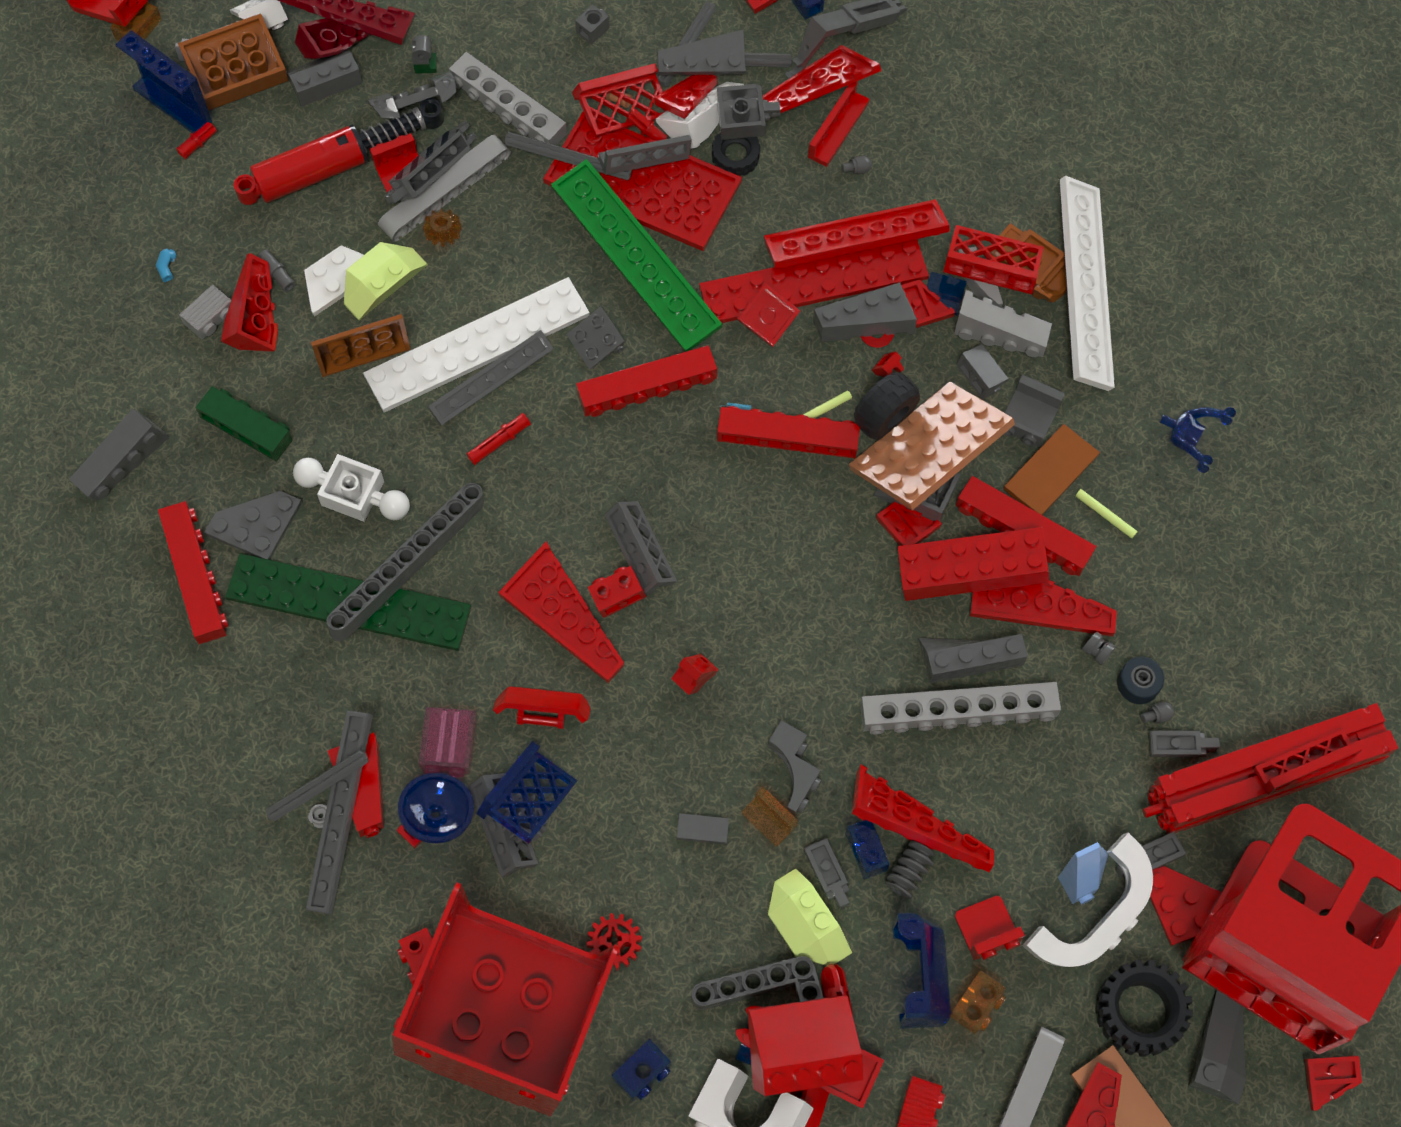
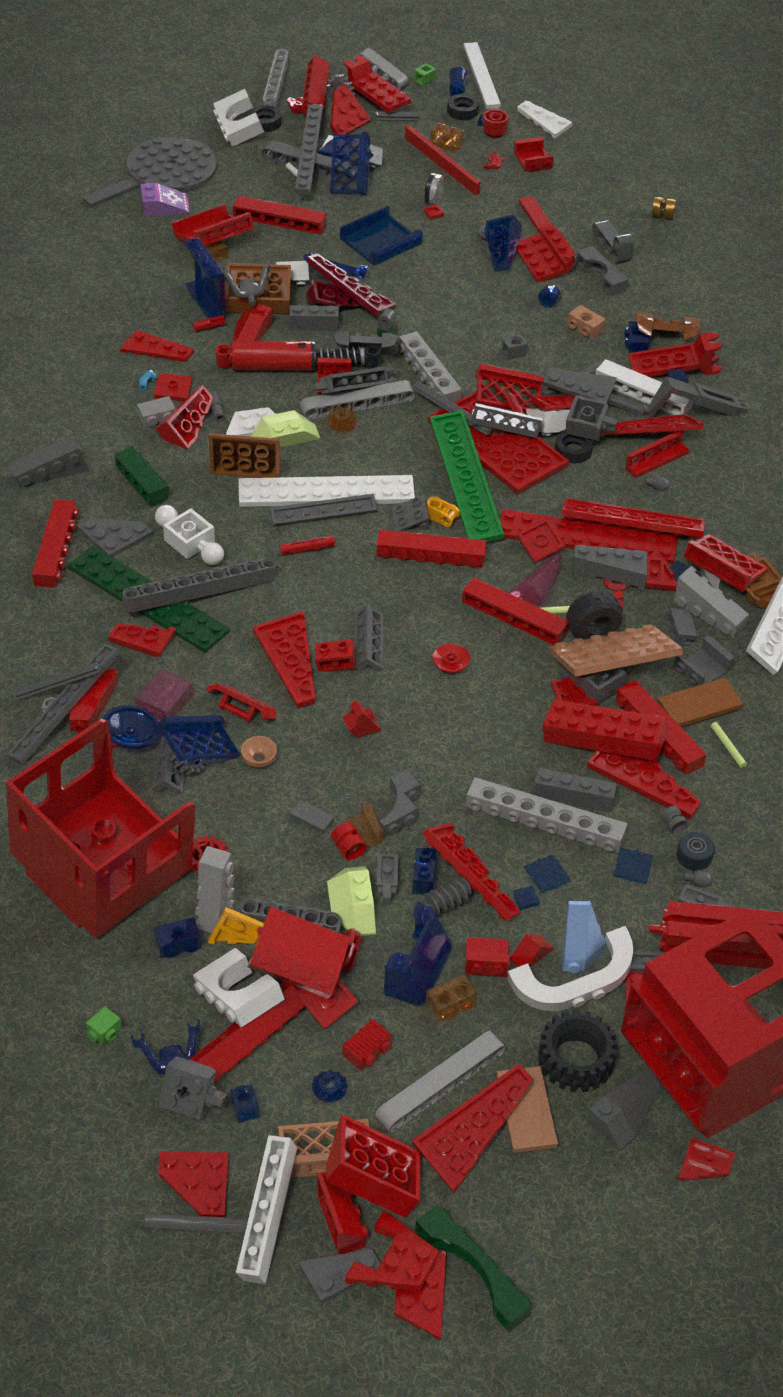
camera: 25 degrees right, 20 degrees down
(137, 206) = (151, 345): none -> red wing
(205, 261) = (174, 386): none -> red plate
(227, 73) = (249, 288): none -> dark grey piece
(252, 125) = (253, 323): none -> red wedge
(378, 666) = (146, 640): none -> red wing
(599, 758) = (258, 745): none -> nougat piece
(632, 319) = (440, 511): none -> light orange piece
(662, 1000) = (215, 887): none -> light grey wedge
(701, 1028) = (235, 928): none -> light orange wing
(752, 523) = (451, 658): none -> red dish
(764, 25) = (642, 387): none -> white brick
(765, 848) = (348, 841): none -> red wheel
(793, 383) = (538, 584): none -> clear pink wedge
(990, 827) = (526, 898): none -> clear blue tile
(996, 782) = (547, 873): none -> clear blue piece
(1030, 897) = (530, 950): none -> red slope
(1081, 728) = (633, 865): none -> clear blue piece

